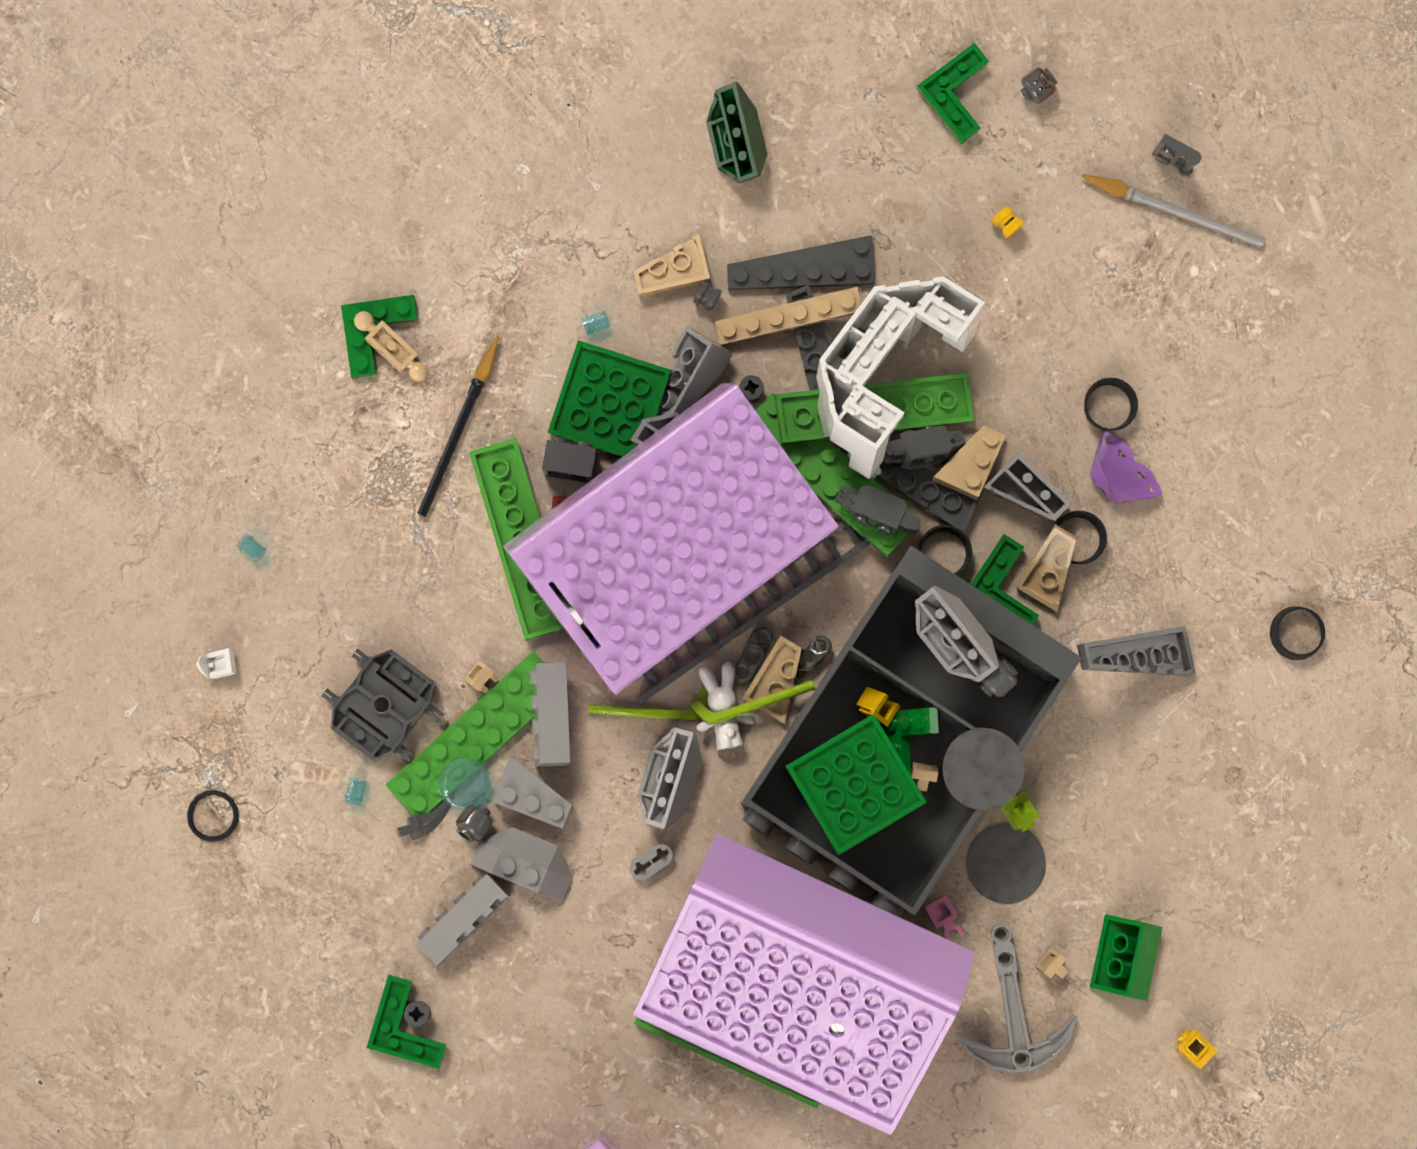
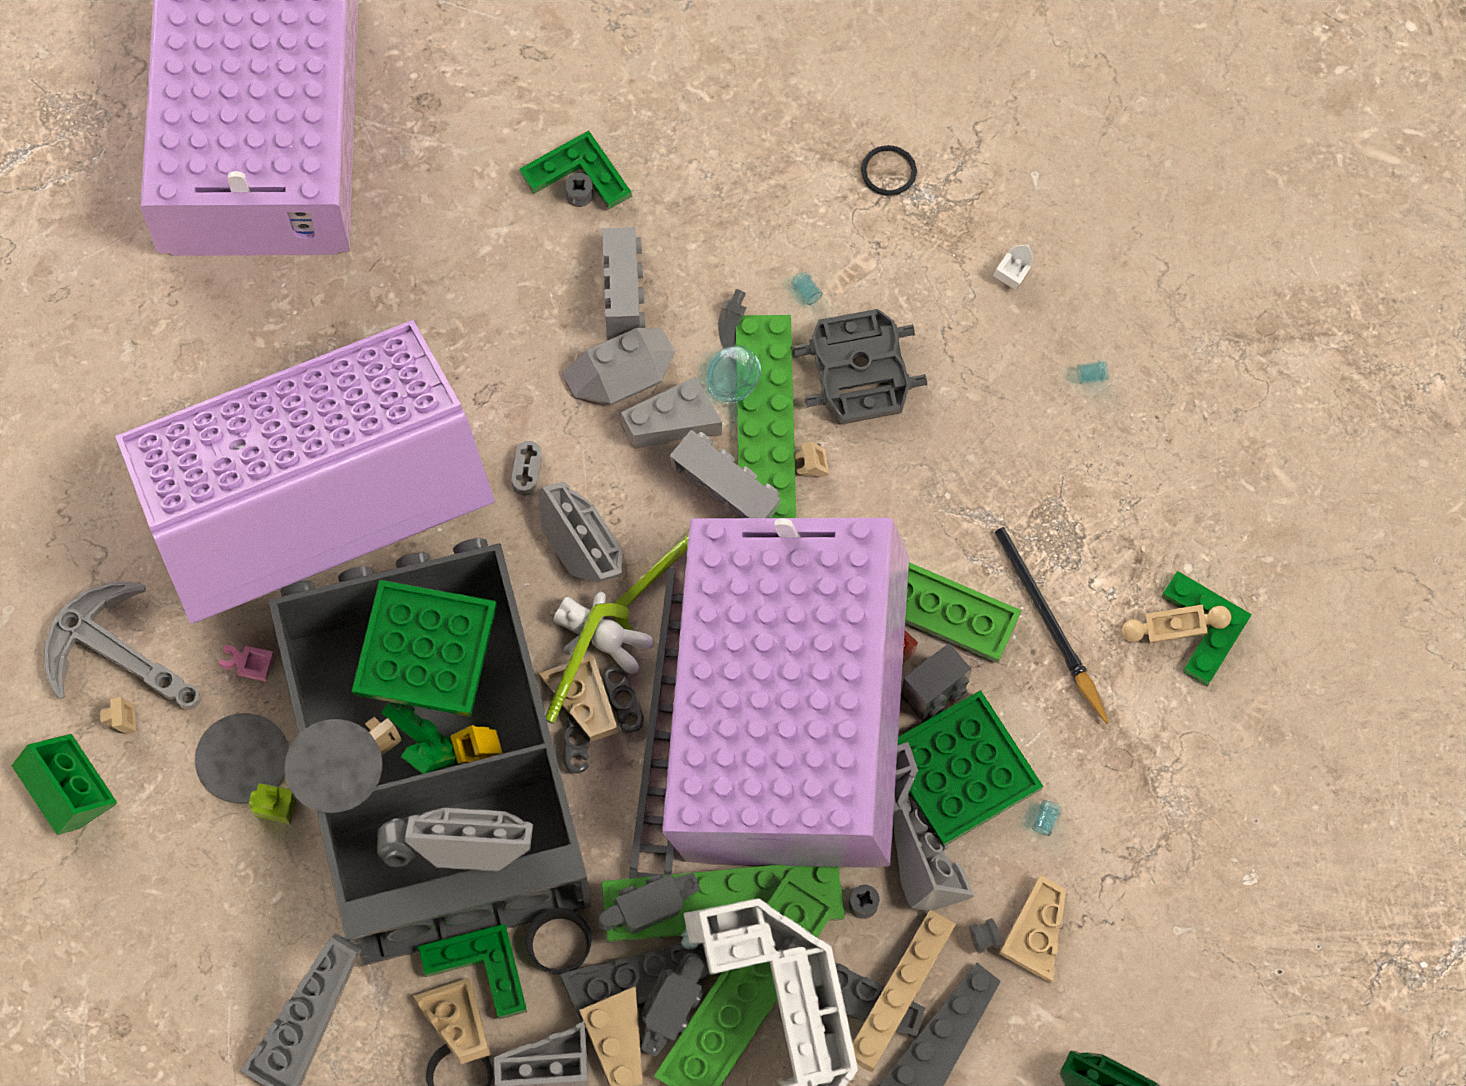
camera: 135 degrees right, 15 degrees down
(474, 823) = (693, 355): dark grey head -> none

